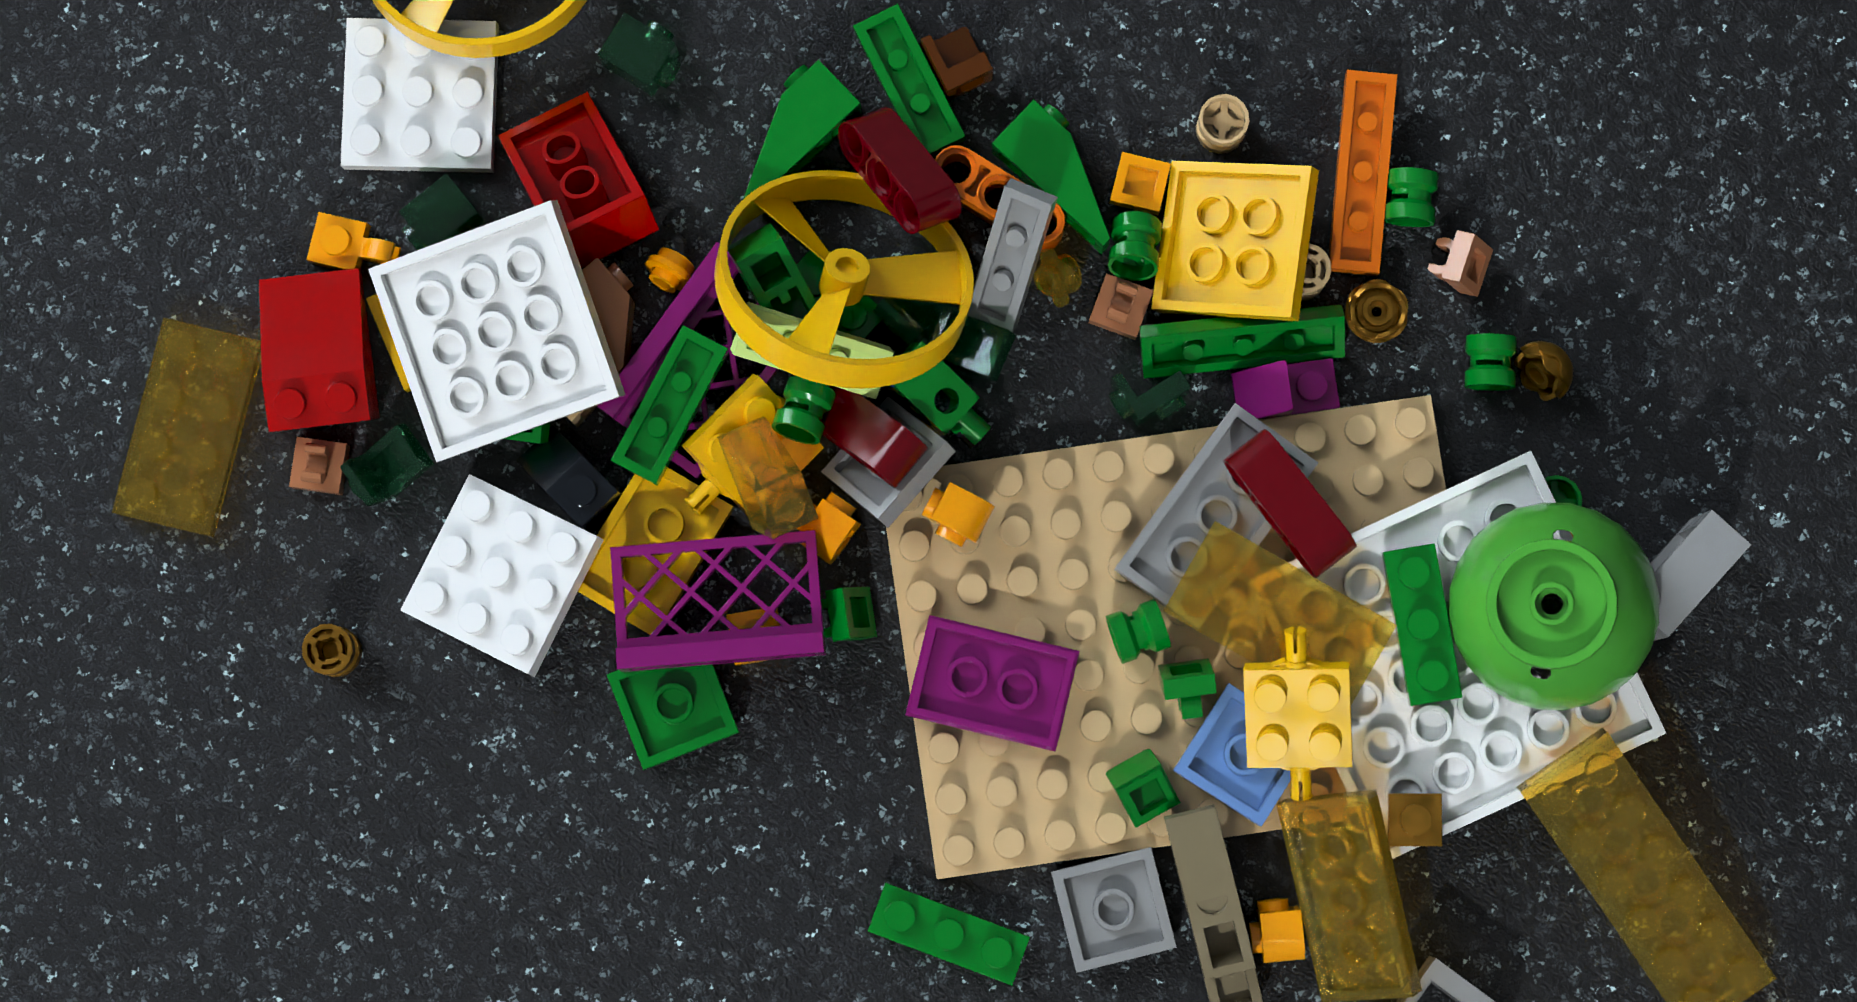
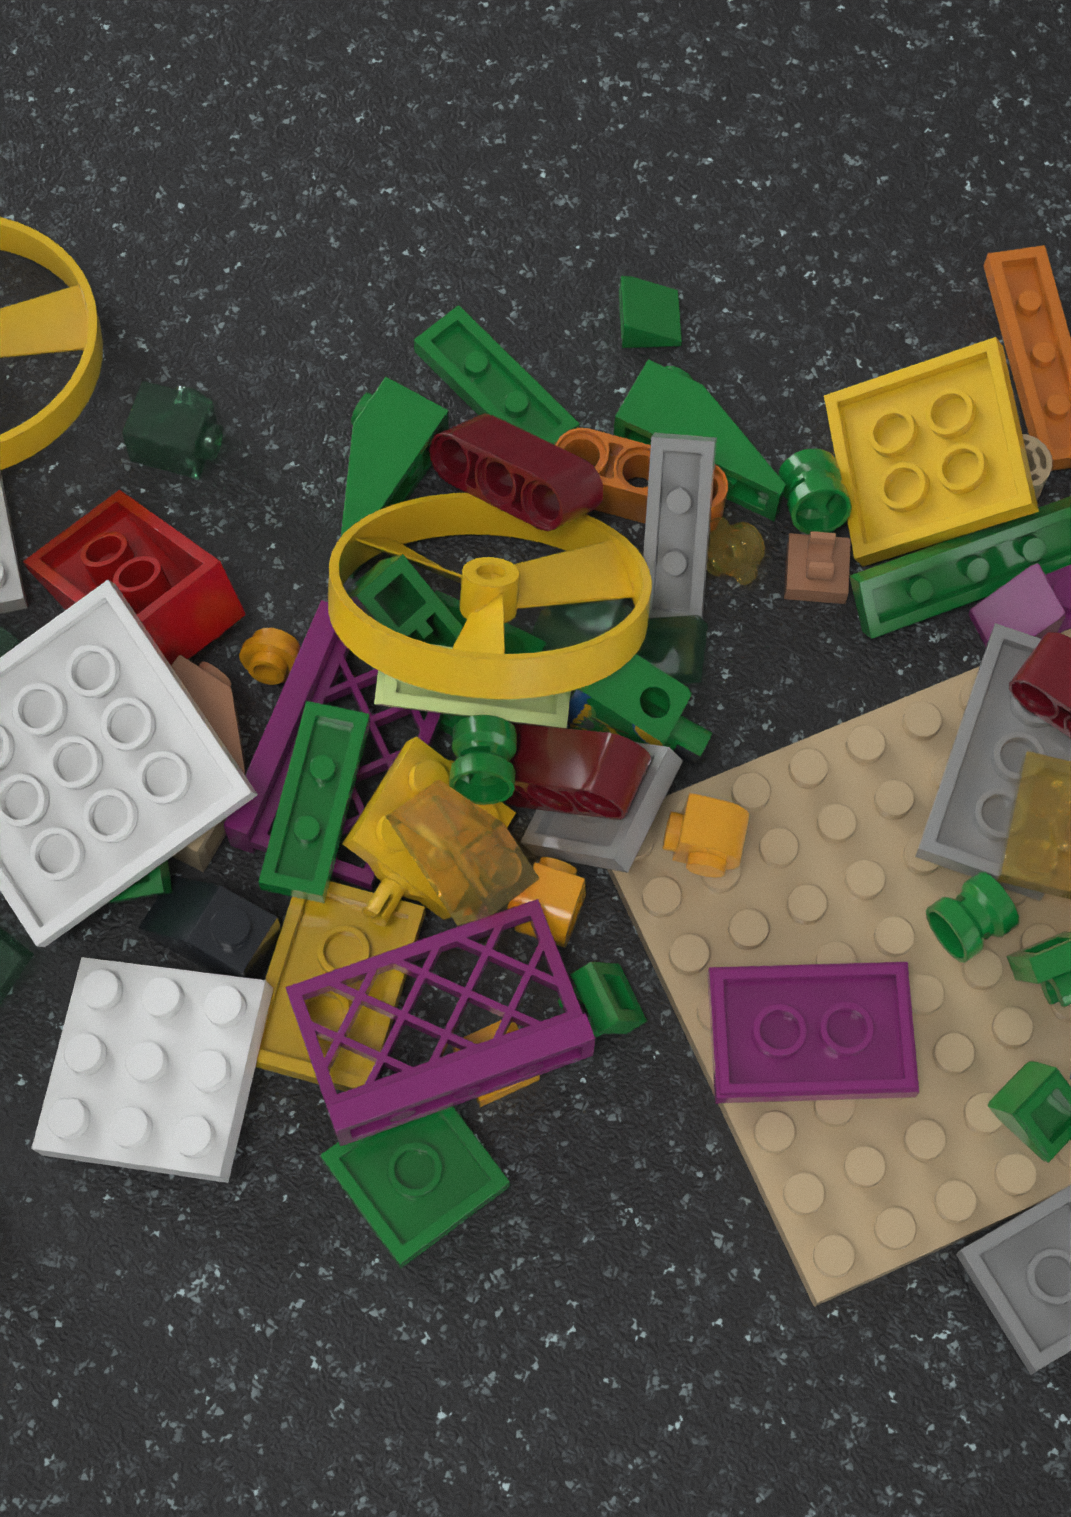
camera: 25 degrees left, 15 degrees down
(948, 934) = (853, 1371): green plate -> none
(957, 62) = (547, 355): reddish brown panel -> none
(1054, 47) = (648, 314): none -> green slope
(1140, 183) = (794, 425): light orange plate -> none
(1162, 399) = (901, 653): clear green bracket -> none
(1223, 114) = (877, 333): tan wheel -> none

